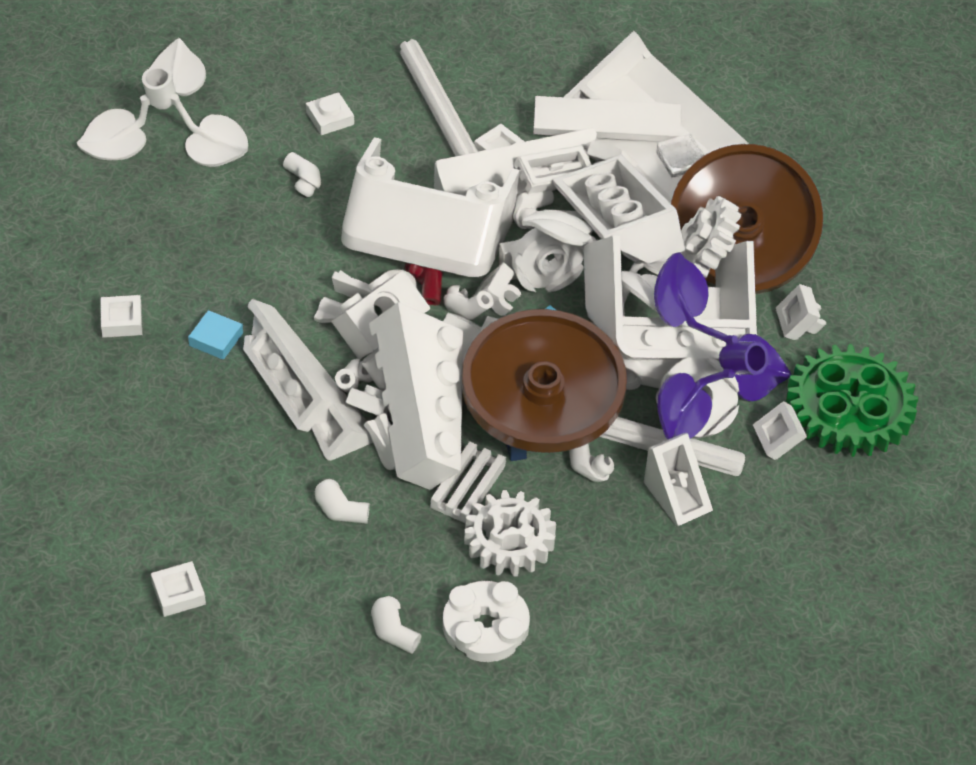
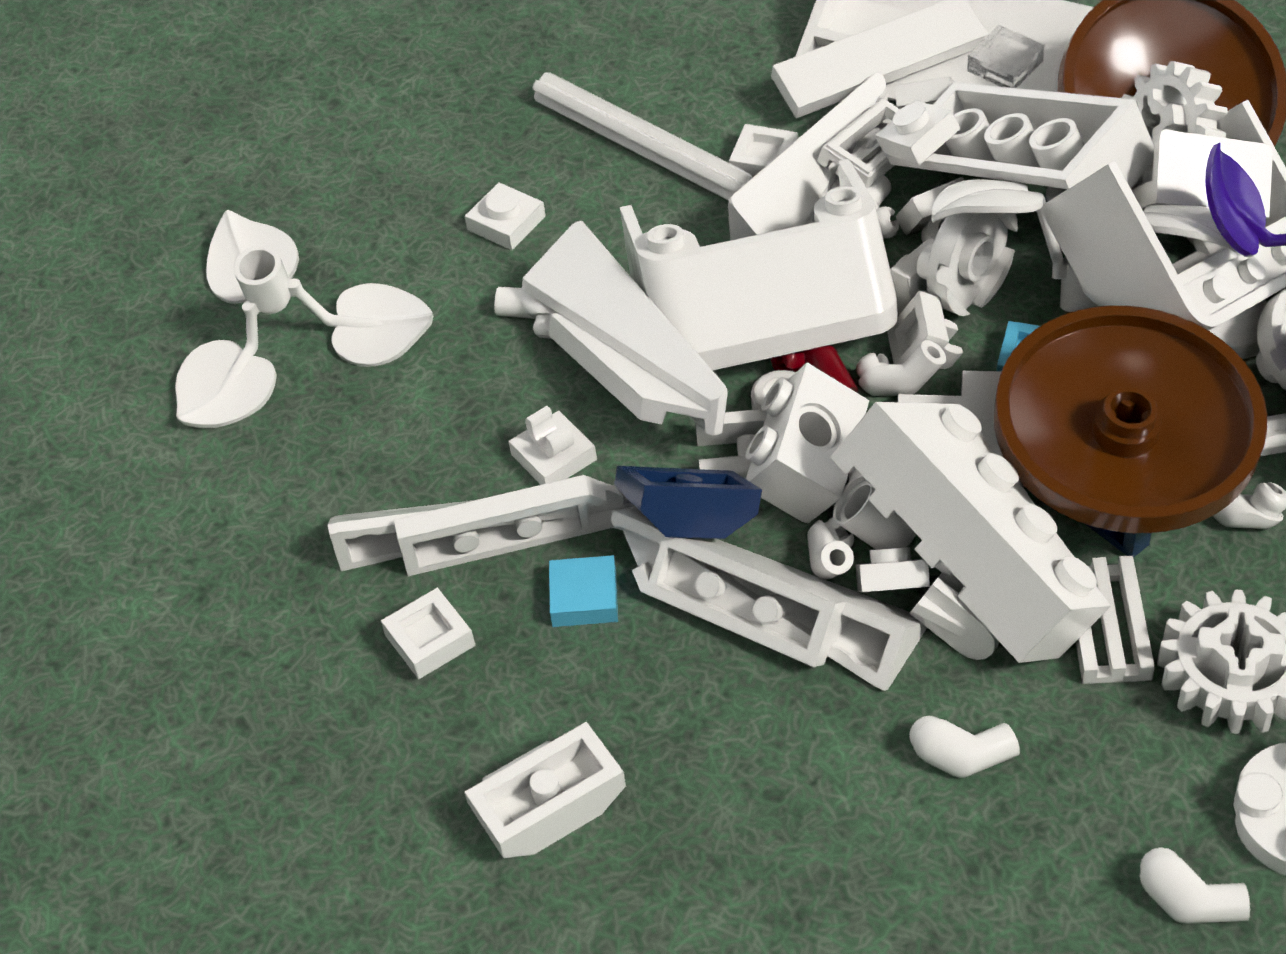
camera: 20 degrees left, 0 degrees up
(119, 421) = (547, 792): none -> white slope
(185, 276) = (475, 529): none -> white wedge
(255, 253) = (551, 447): none -> white tile
(292, 312) = (689, 500): none -> dark blue slope
(326, 207) = (622, 334): none -> white wedge
(572, 172) = (917, 131): none -> white plate
(721, 276) = (1181, 168): none -> white panel

